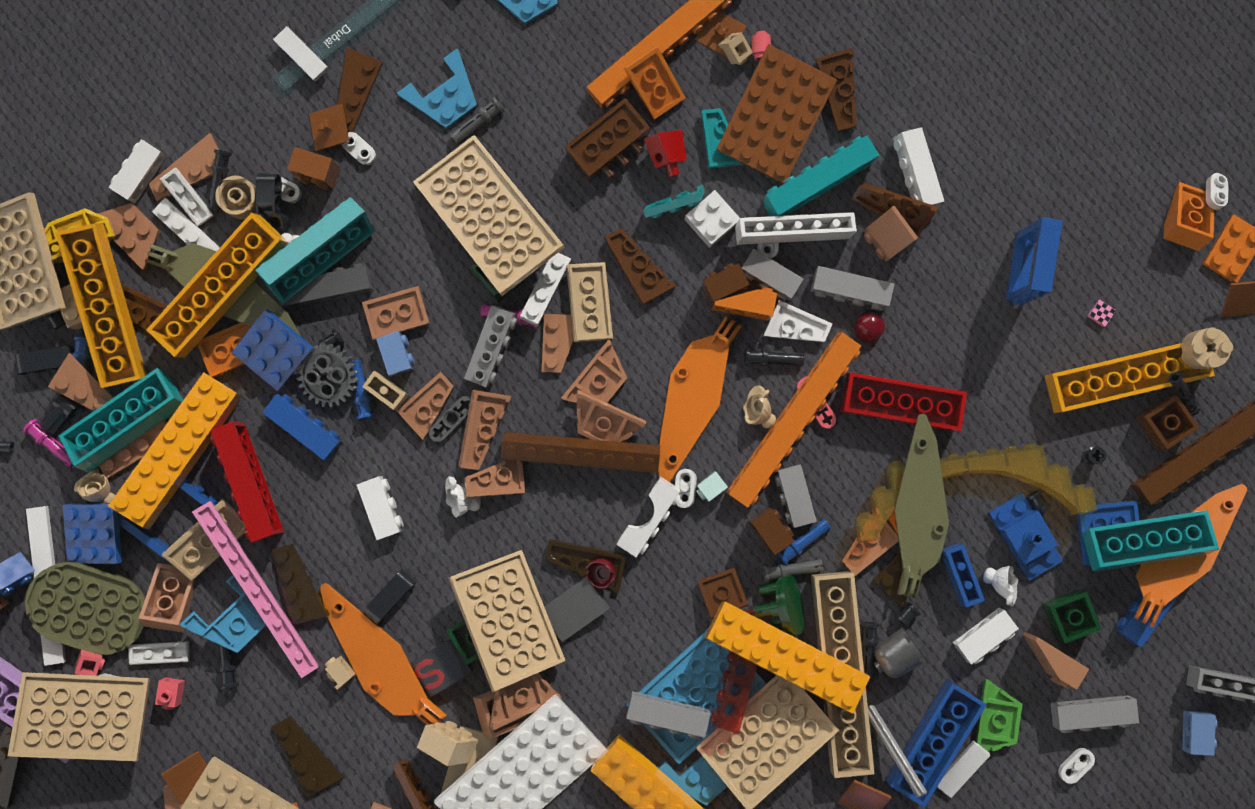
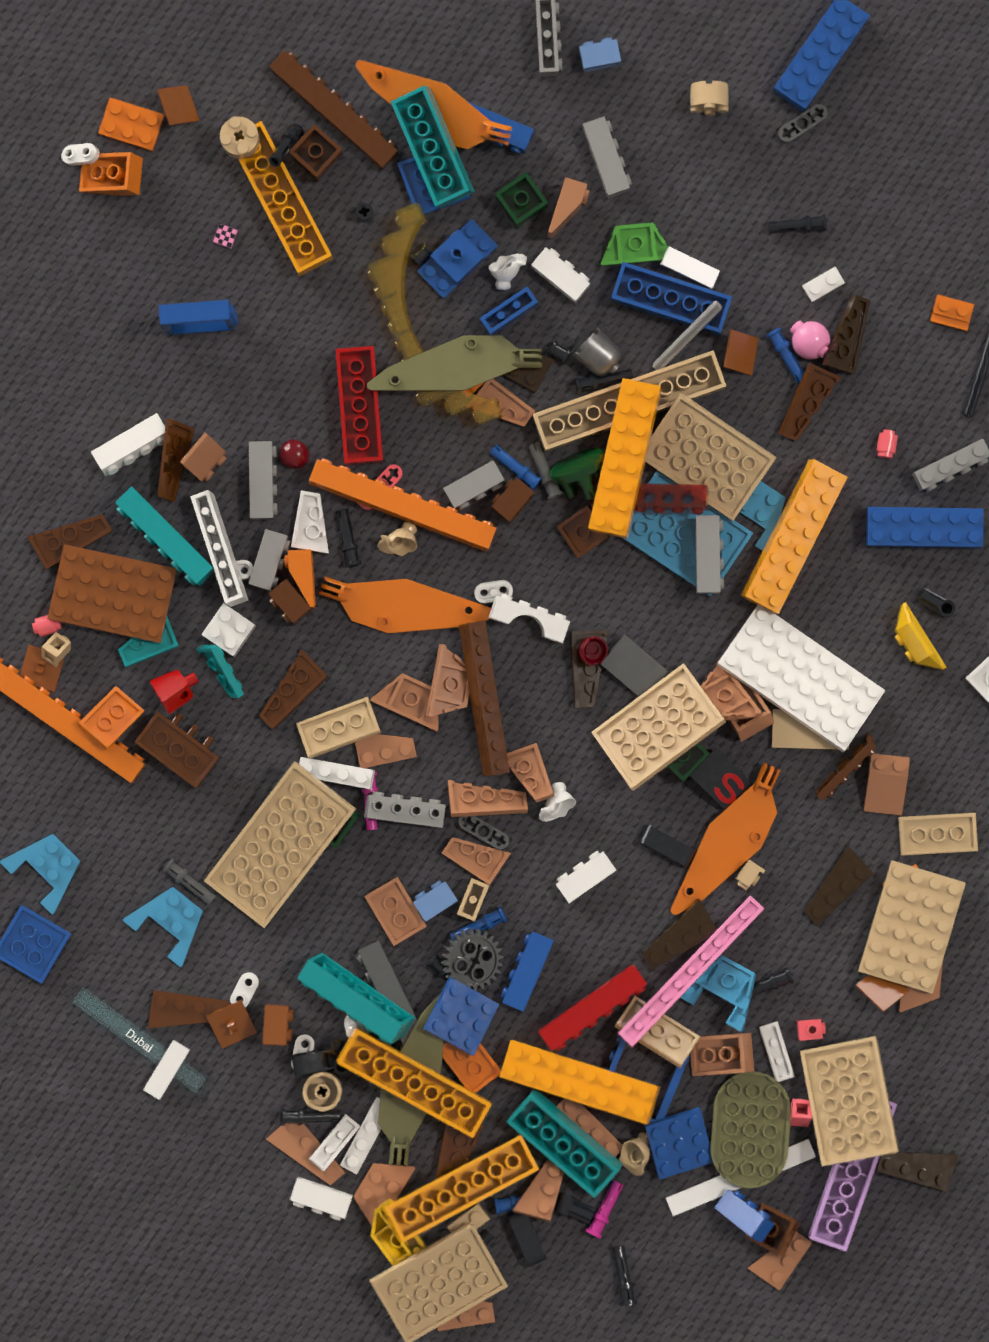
camera: 95 degrees left, 0 degrees up
(447, 743) = (786, 752): tan brick -> none
(711, 487) = (486, 567): light aqua brick -> none
(1077, 767) = (660, 161): white plate -> none

